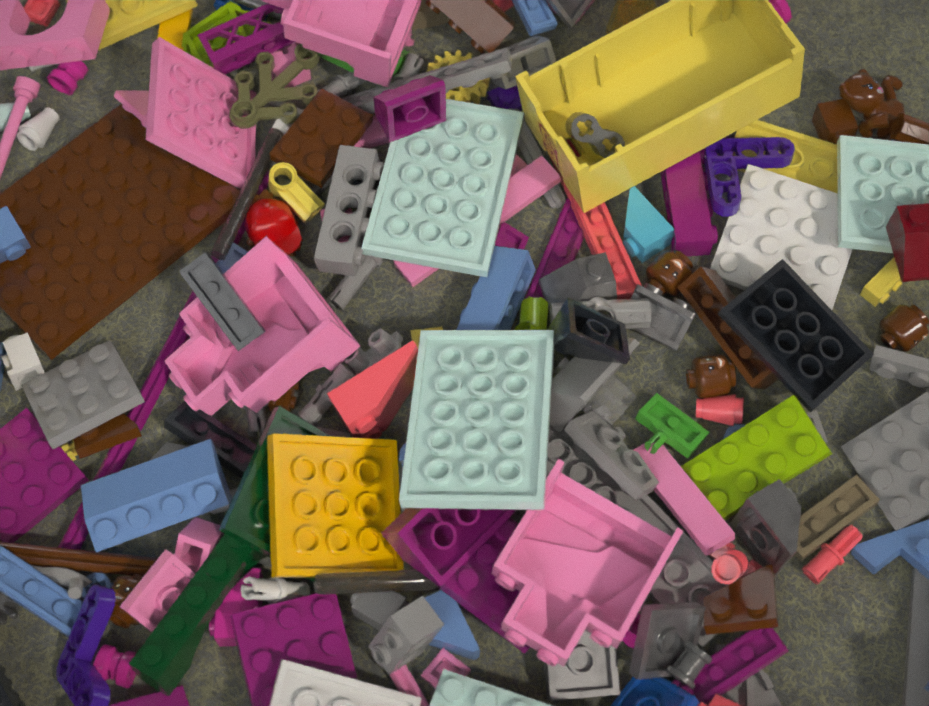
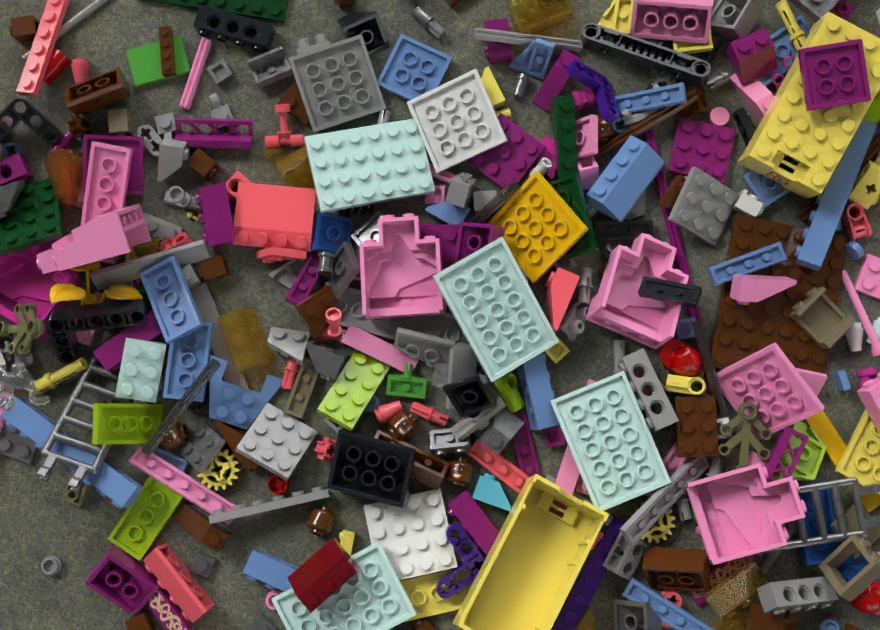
camera: 150 degrees right, 20 degrees up
(59, 161) = (821, 318): none -> dark tan panel
(92, 279) = (747, 263): none -> medium blue tile
(100, 90) = (841, 380): none -> medium blue tile
(103, 237) = (757, 287): none -> bright pink slope
(411, 107) = (658, 467): magenta slope -> none
(594, 134) = (547, 519): dark grey axle -> none
(663, 372) = (429, 414): none -> coral axle
(814, 591) = (289, 342): none -> light grey wing
(842, 411) = (325, 449): none -> coral gear
(881, 638) = (245, 339): none -> clear yellow slope

